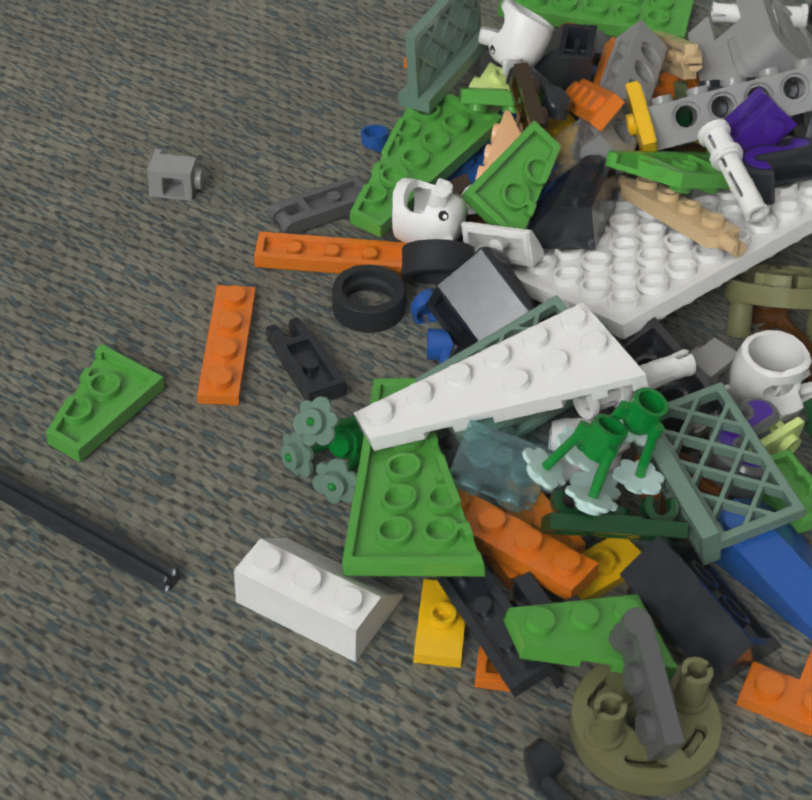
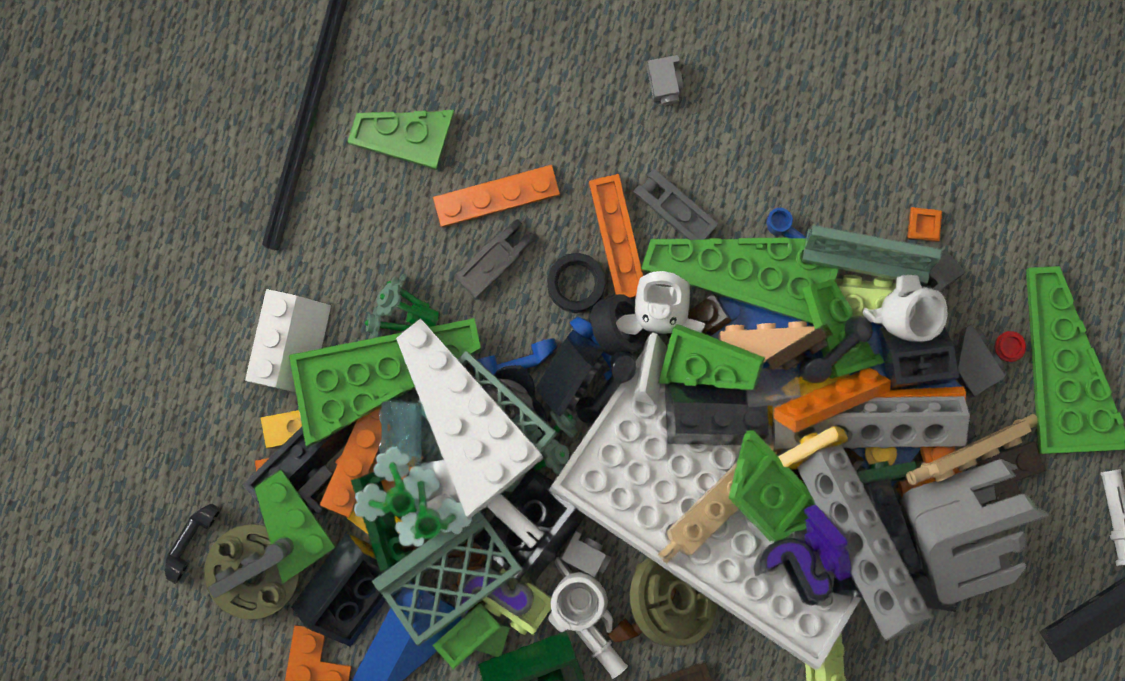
camera: 75 degrees right, 40 degrees up
(727, 158) = (775, 529): white pin -> none

